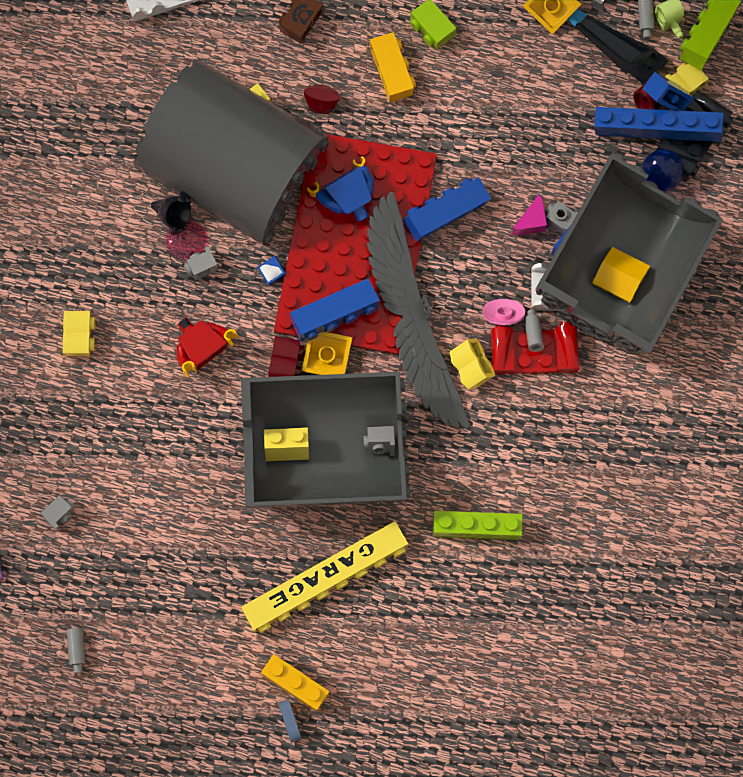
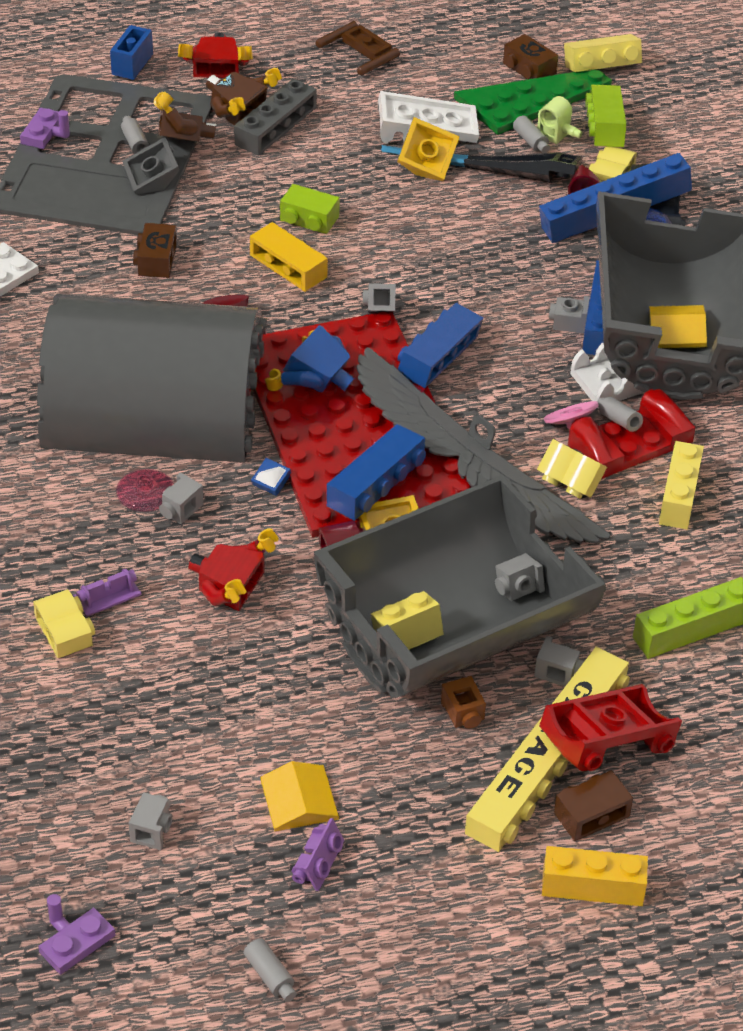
camera: 25 degrees left, 30 degrees down
(117, 320) = (105, 595): none -> medium lavender hinge
(152, 578) = (324, 845): none -> medium lavender hinge
(157, 535) = (298, 795): none -> yellow slope
(174, 212) = (113, 460): black hat -> none
(289, 720) = (616, 924): sand blue beam -> none
(291, 512) = (463, 709): none -> dark orange brick
(325, 632) = (593, 805): none -> reddish brown brick
(364, 586) = (600, 721): none -> red piece
(368, 517) = (557, 662): none -> light grey brick
(431, 143) = (380, 298): none -> light grey brick
(532, 220) = (543, 325): dark pink slope -> none
(539, 411) = (681, 485): none -> light yellow brick
(667, 92) = (606, 157): blue brick -> none

